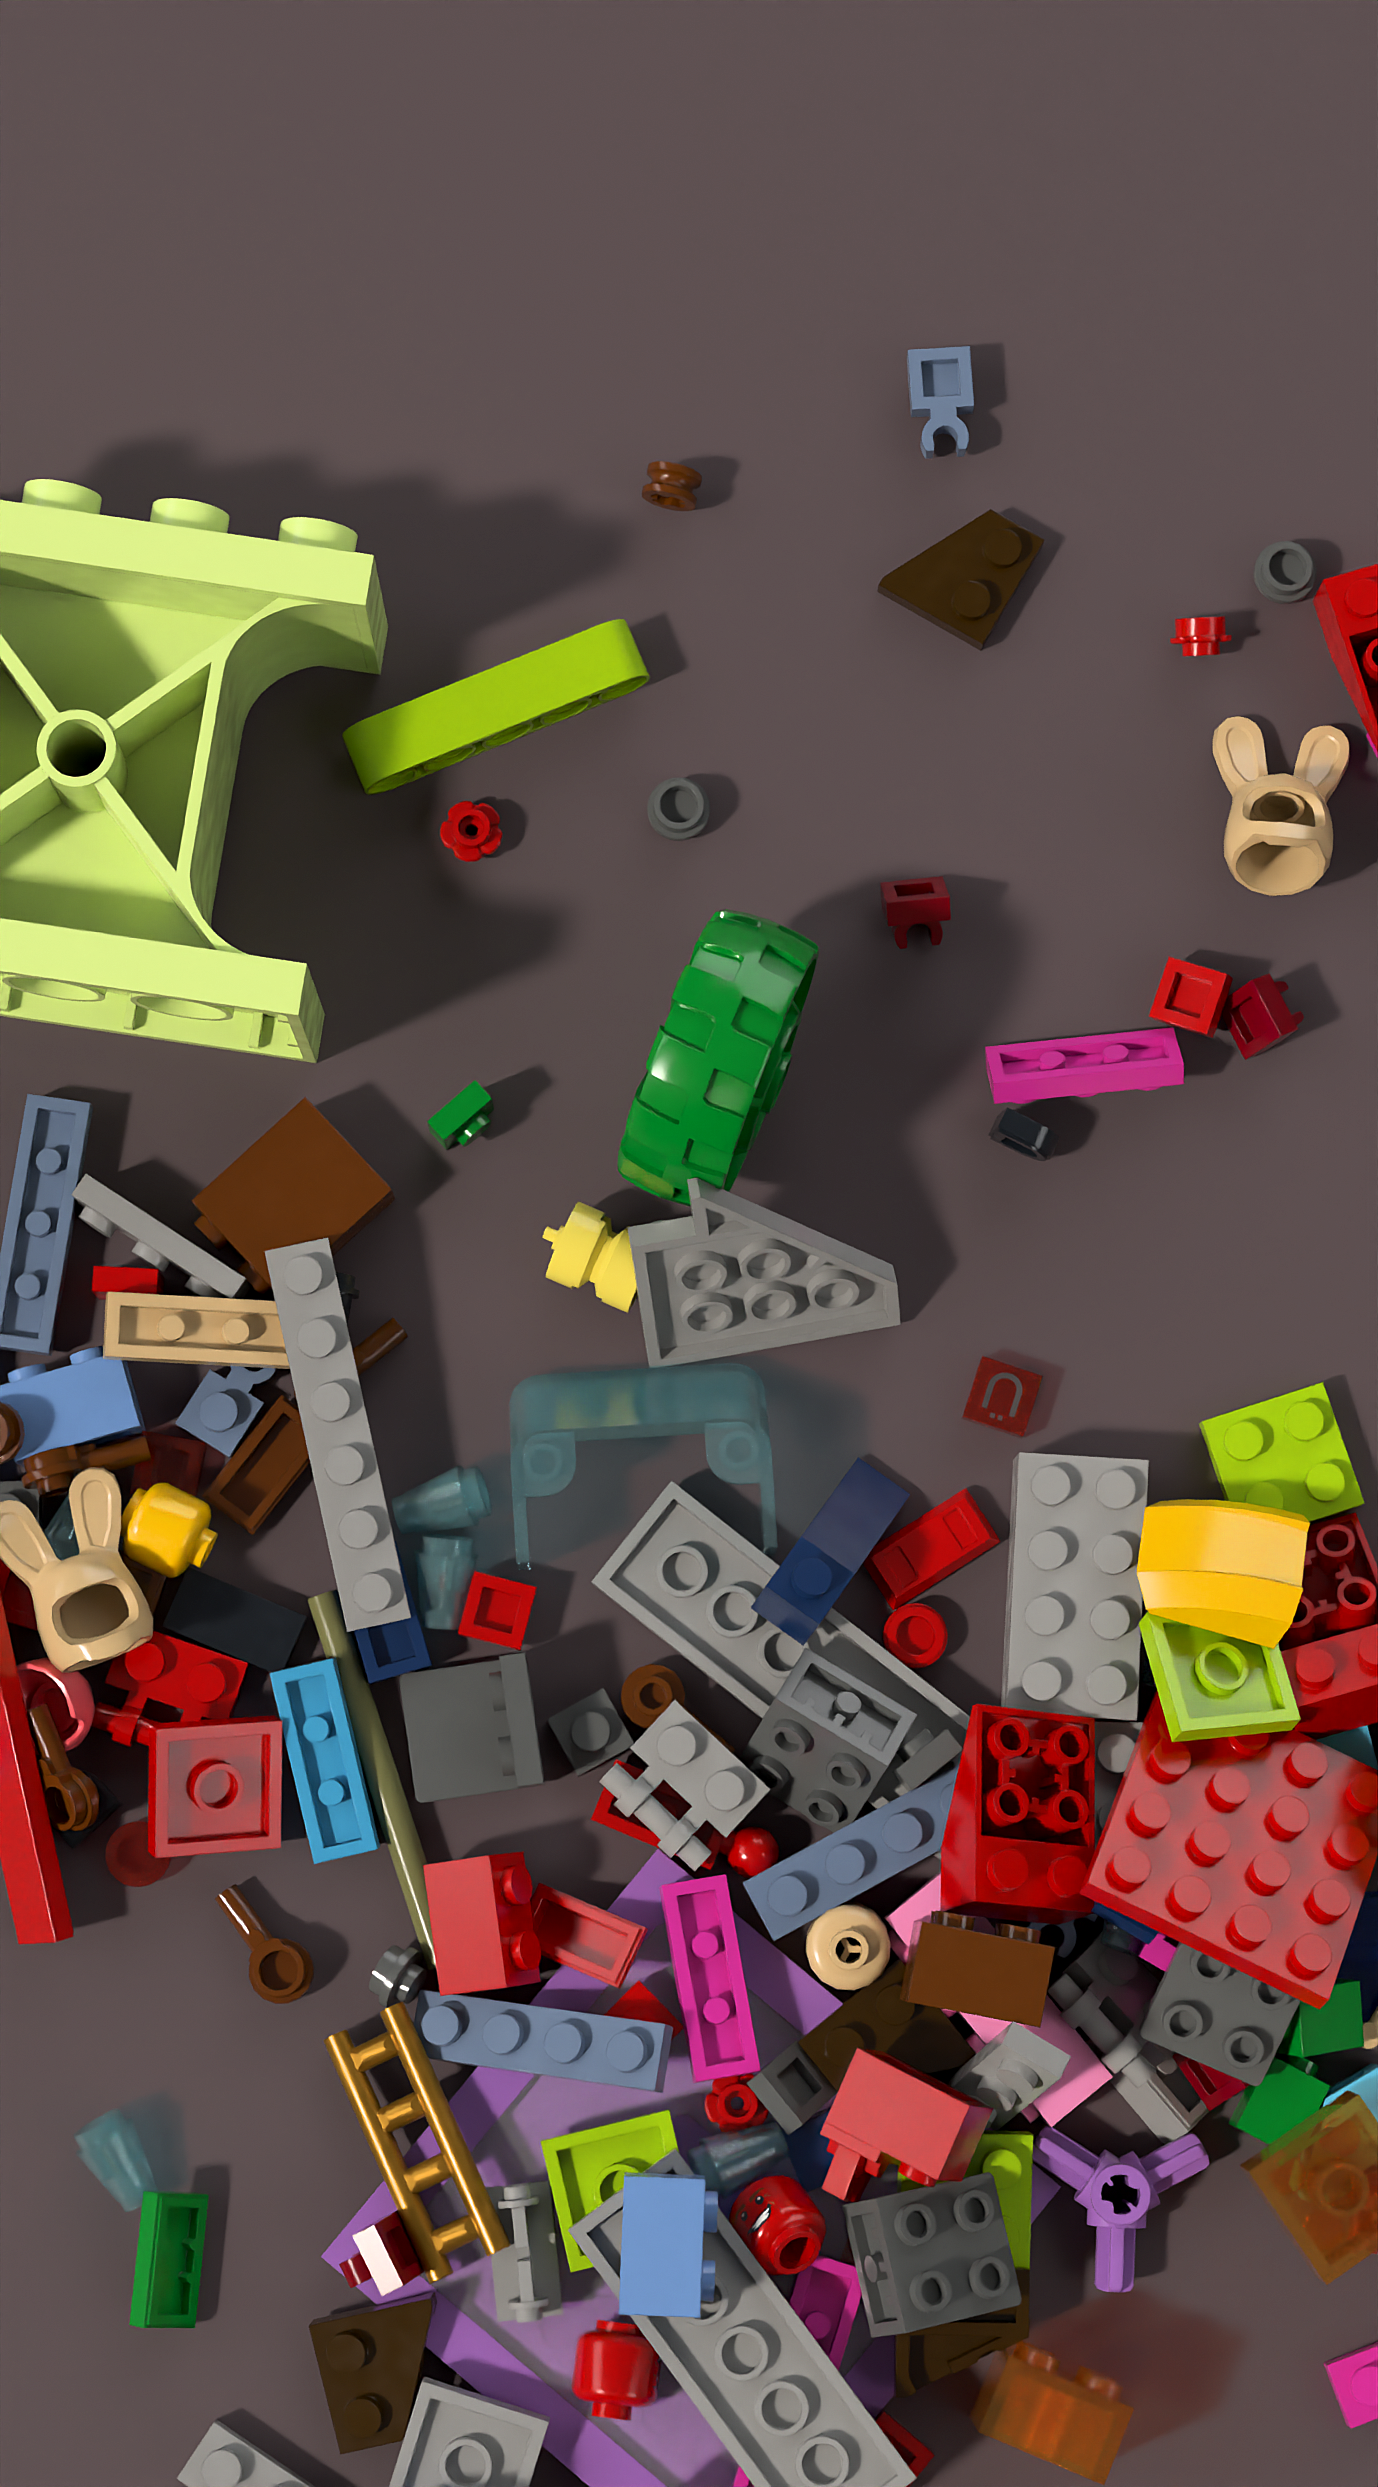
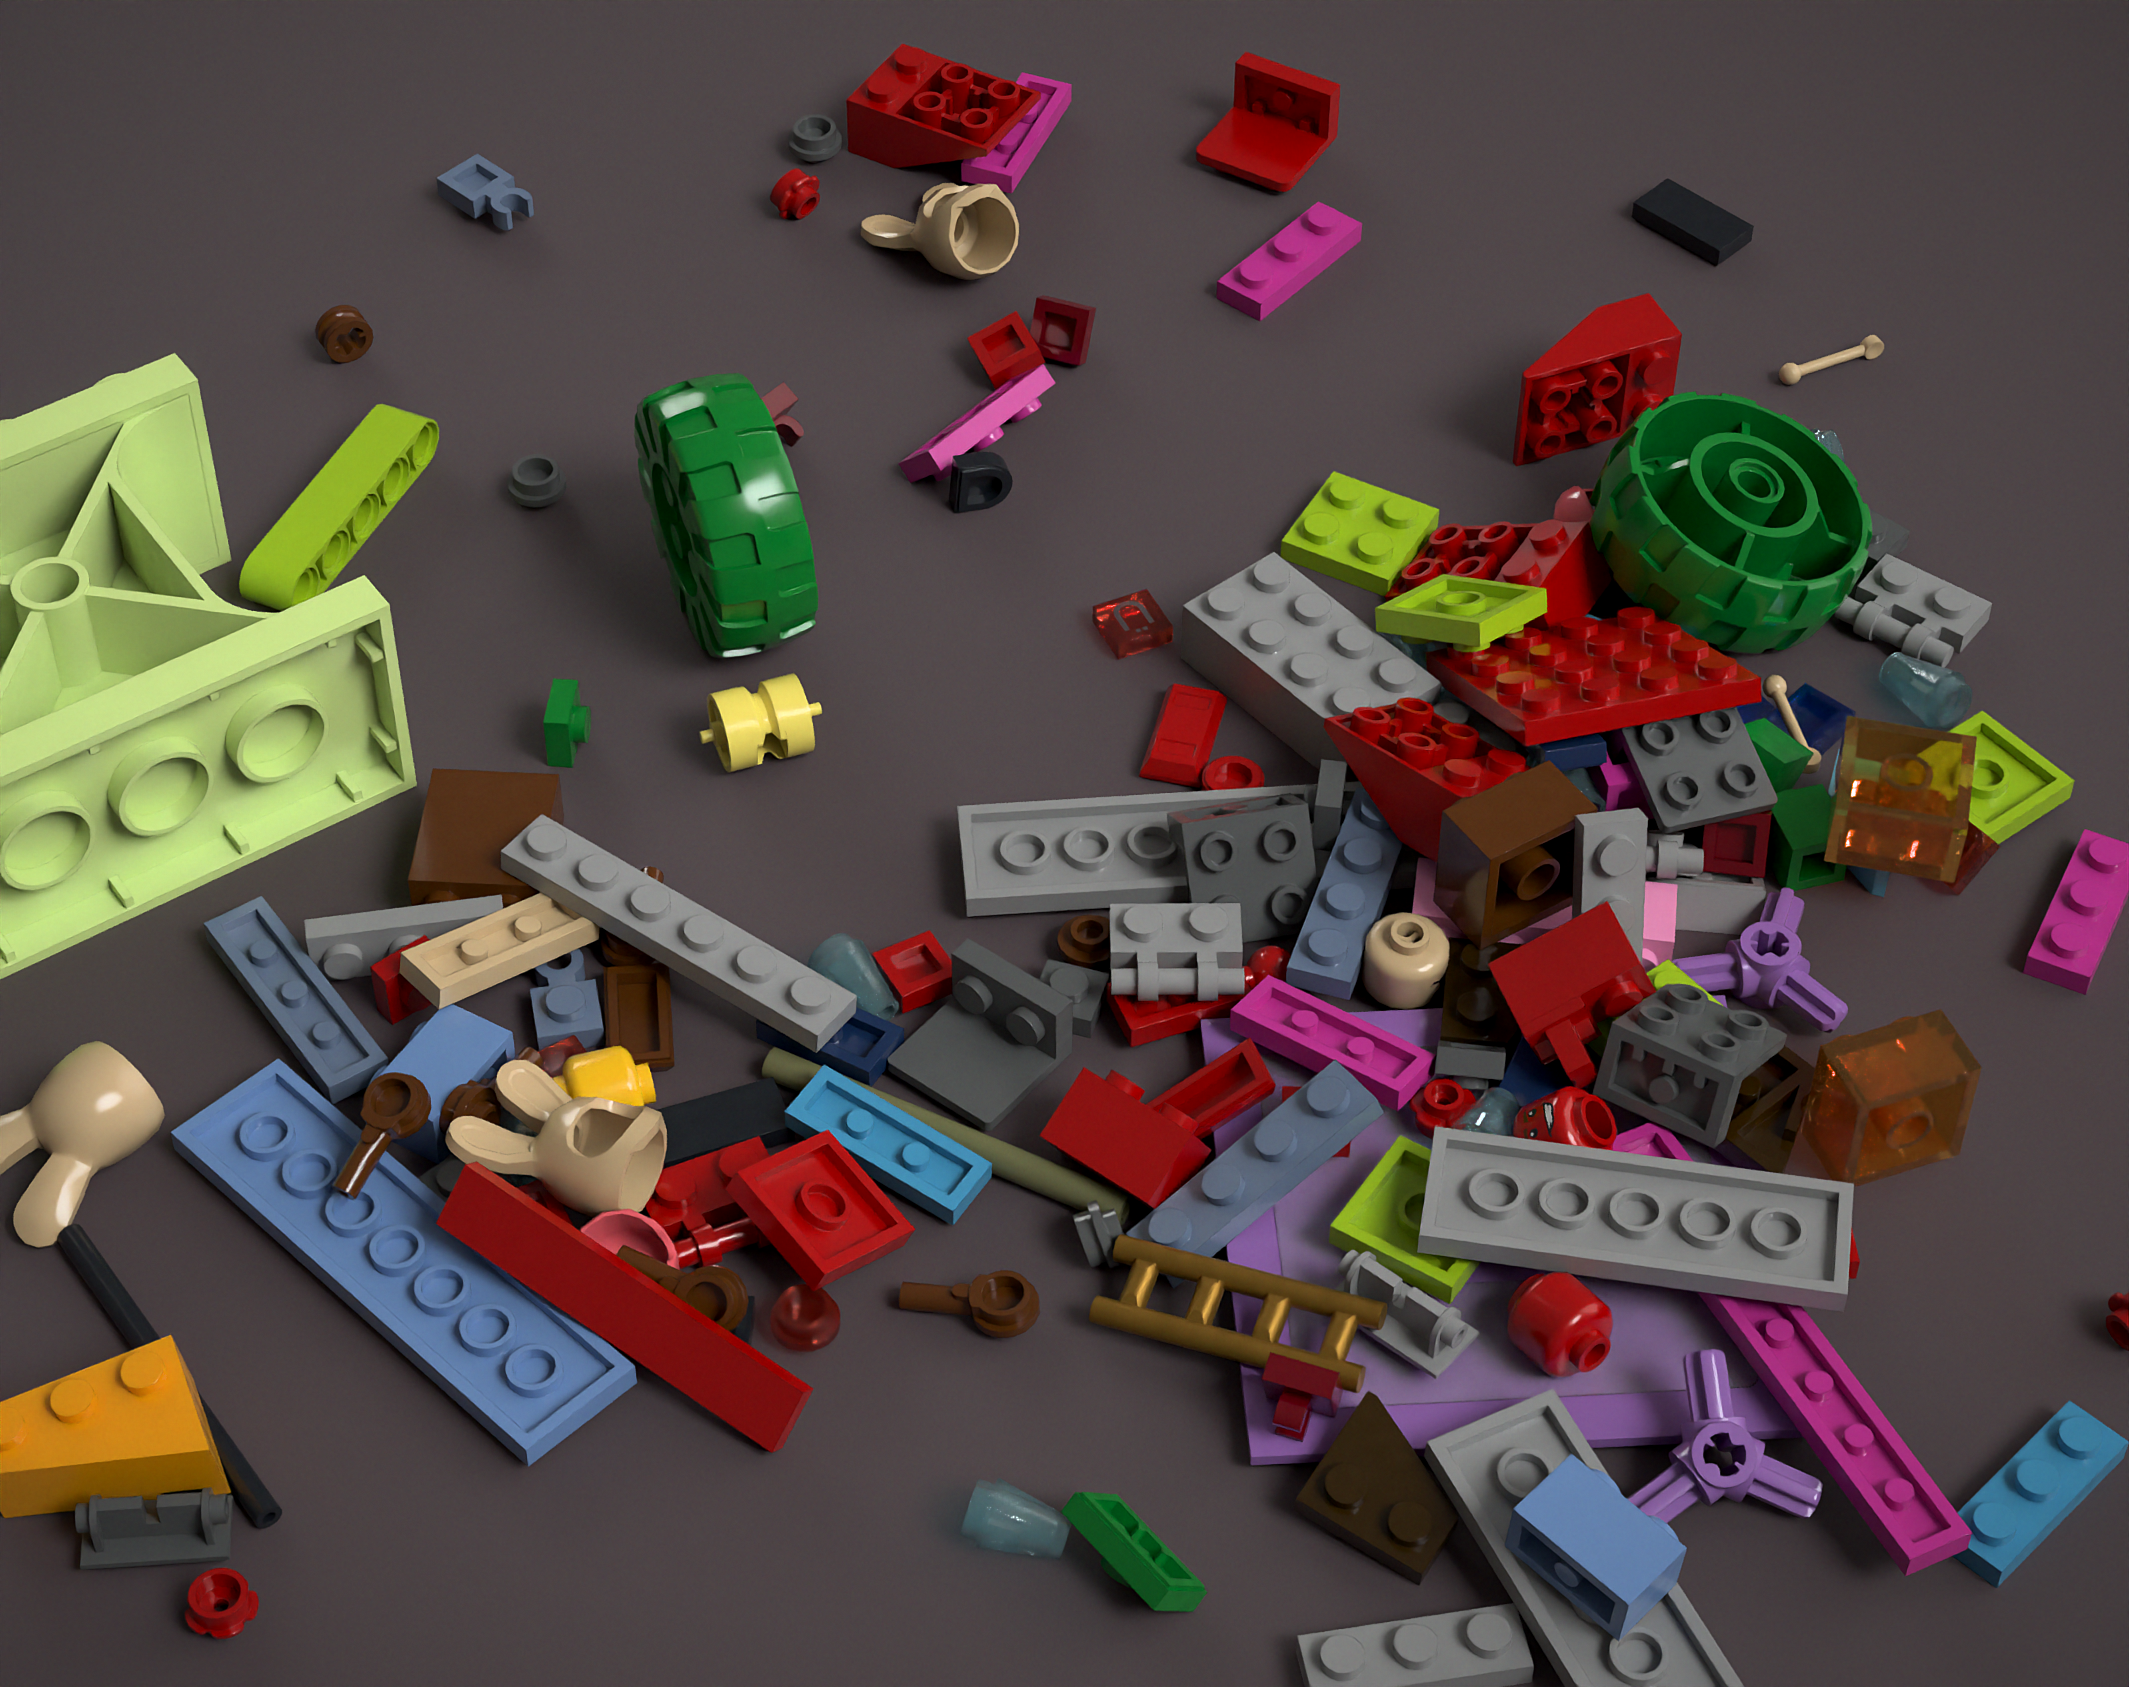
camera: 40 degrees left, 35 degrees down
(444, 1502) = (807, 925): clear light blue cone -> none
(471, 847) = (399, 584): red plate -> none
(664, 2245) = (1499, 1165): medium blue brick -> none
(708, 1399) = (834, 837): clear light blue windscreen -> none
(750, 1282) = (881, 642): light grey wing -> none
(830, 1551) = (1122, 767): dark blue slope -> none
(966, 577) = (603, 266): dark brown wing -> none
(1223, 1566) = (1400, 554): yellow slope -> none

